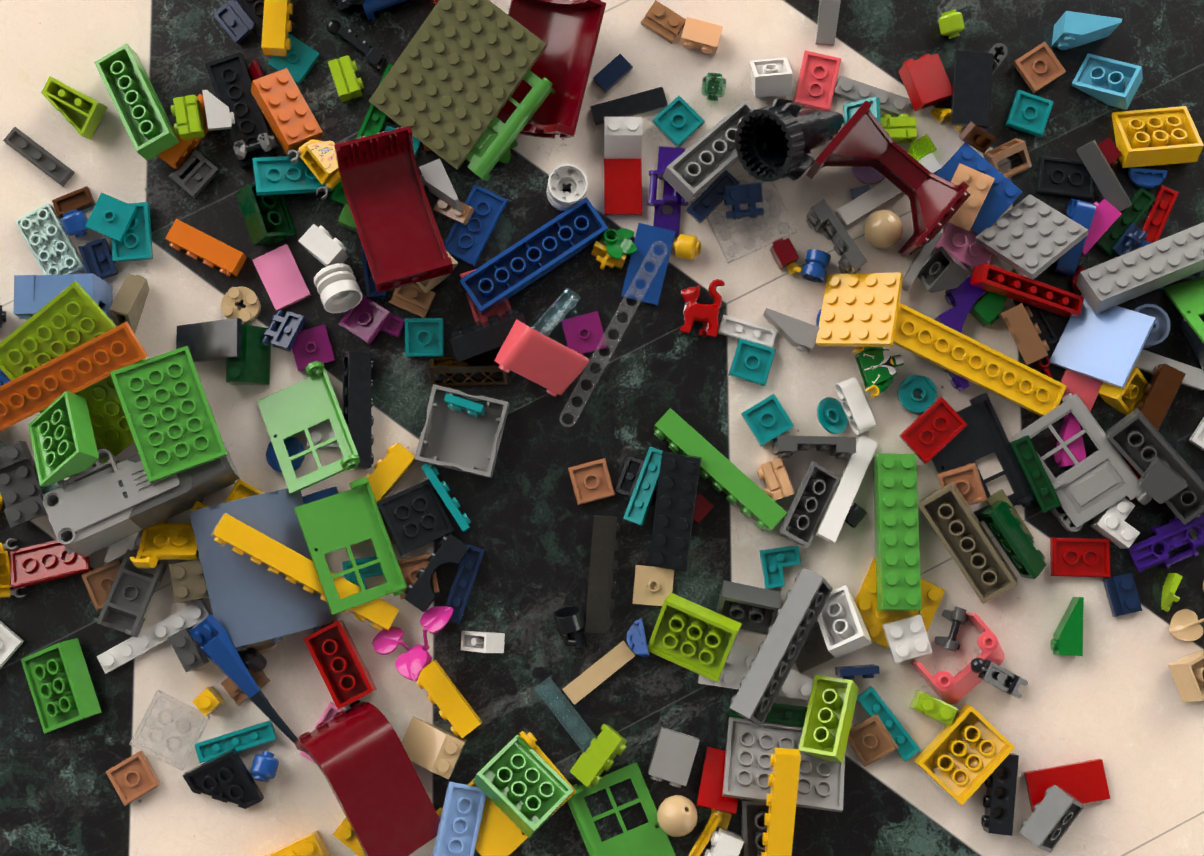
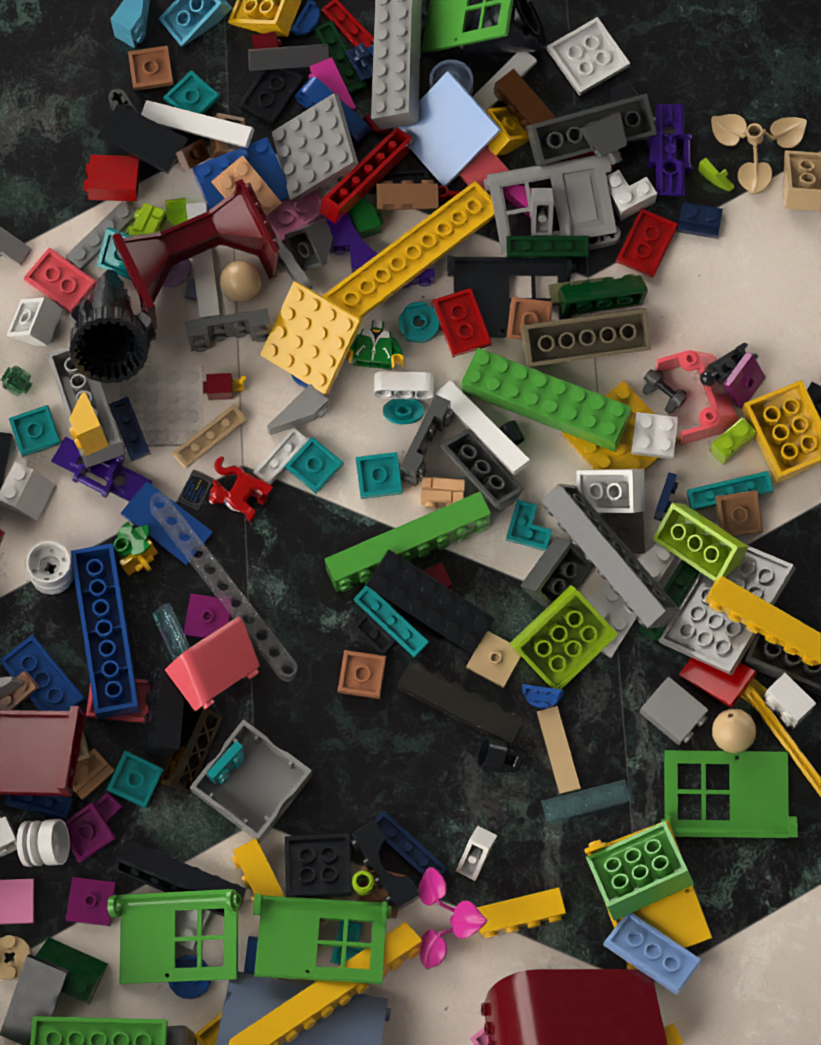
camera: 60 degrees left, 10 degrees down
(287, 332) = (63, 916): dark blue plate -> none
(340, 664) = (435, 1007): red brick -> none
(408, 561) = (363, 876): none -> lime brick
(432, 747) = (563, 946): tan slope -> none
(451, 503) = (321, 824): teal plate -> none
(599, 756) = (642, 782): lime wedge -> none
(622, 187) = (74, 514): red tile -> none
(687, 246) = (167, 477): yellow head -> none
(688, 274) = (195, 489): none -> sticker
(691, 159) = (86, 427): none -> yellow slope
(736, 265) = (209, 436): none -> tan tile
(743, 194) = (141, 399): dark blue plate -> none
(816, 264) = (244, 360): blue wheel -> none
(941, 114) = (153, 175): yellow slope -> none
(951, 23) = (66, 129): lime head -> none
(992, 696) = (744, 380): none -> magenta plate
(1006, 129) = (198, 124): none -> white tile
(1064, 455) = (541, 211): none -> light grey slope
(1069, 633) = (715, 284): green slope -> none

